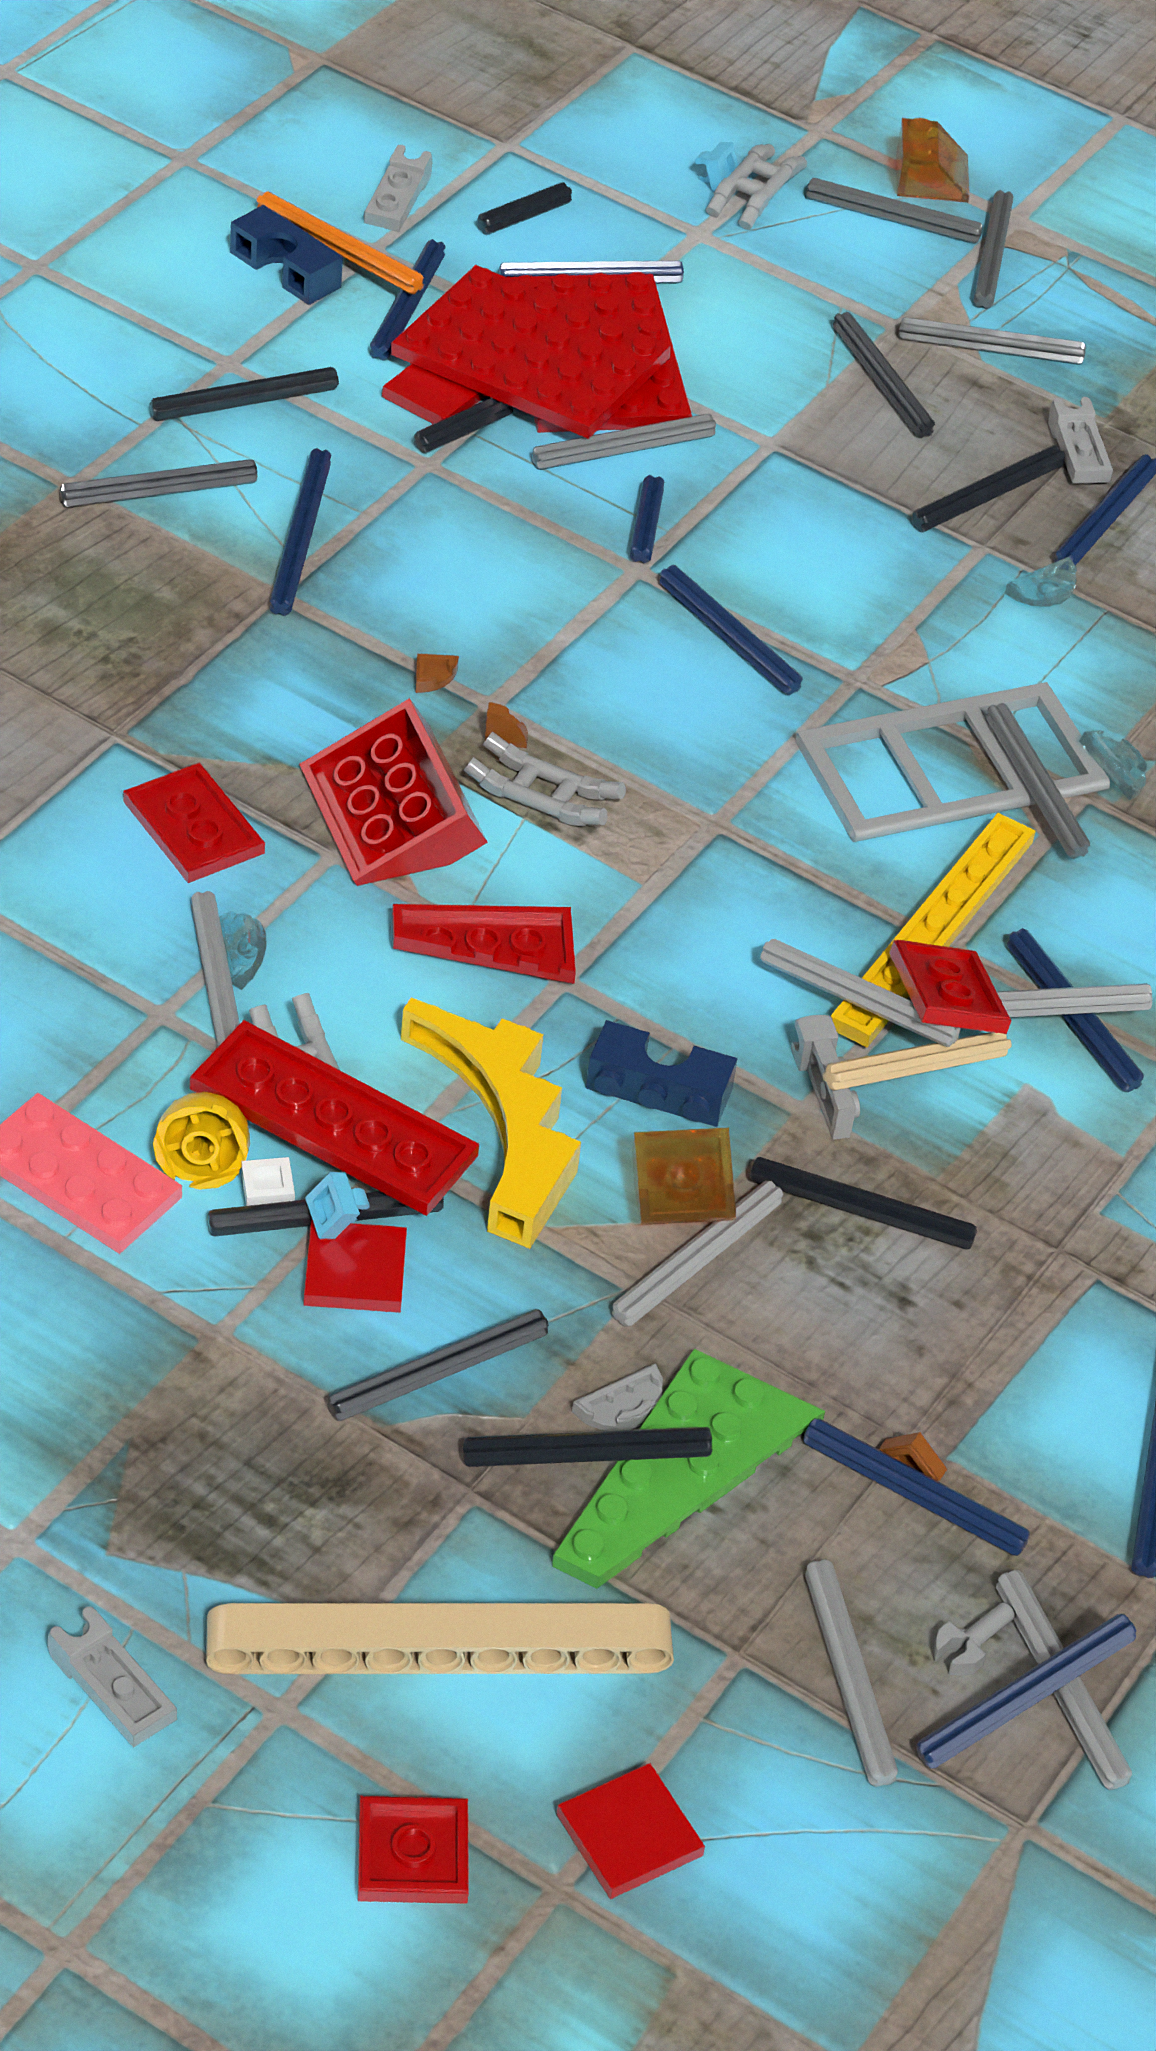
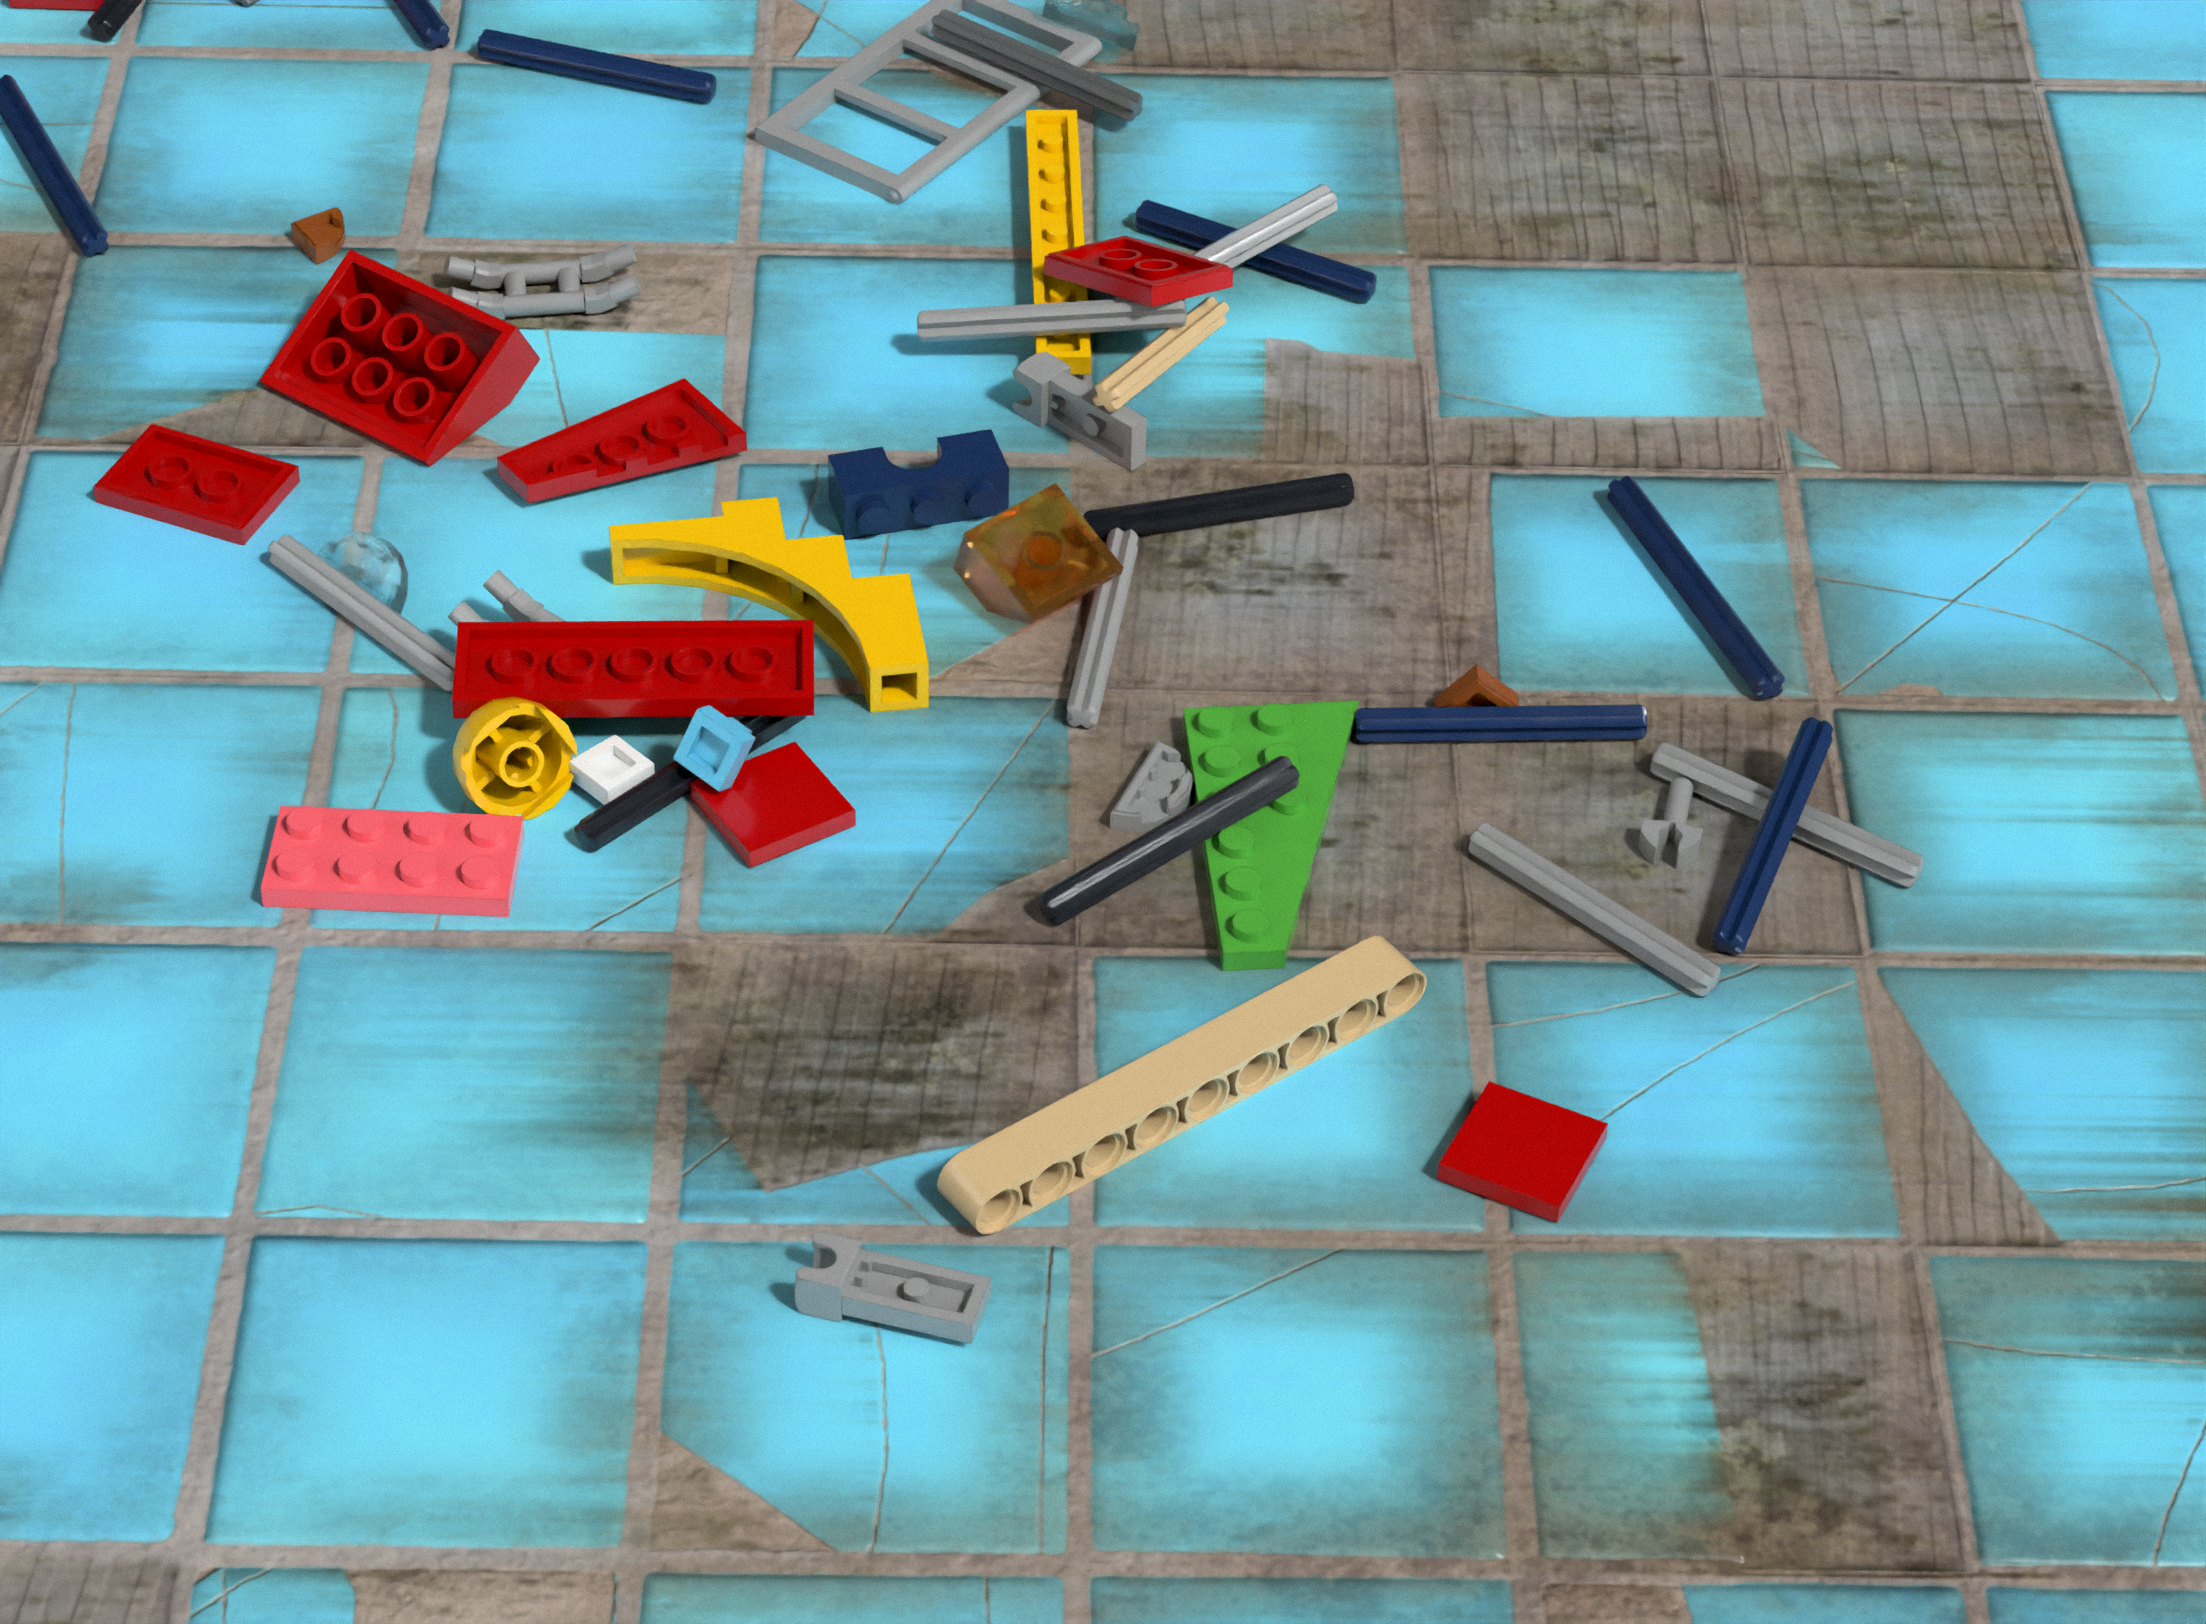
camera: 30 degrees left, 5 degrees down
(413, 1850) = (1334, 1281): red tile -> none
(437, 1365) = (942, 850): axle -> none
(505, 725) = (446, 241): dark orange tile -> none

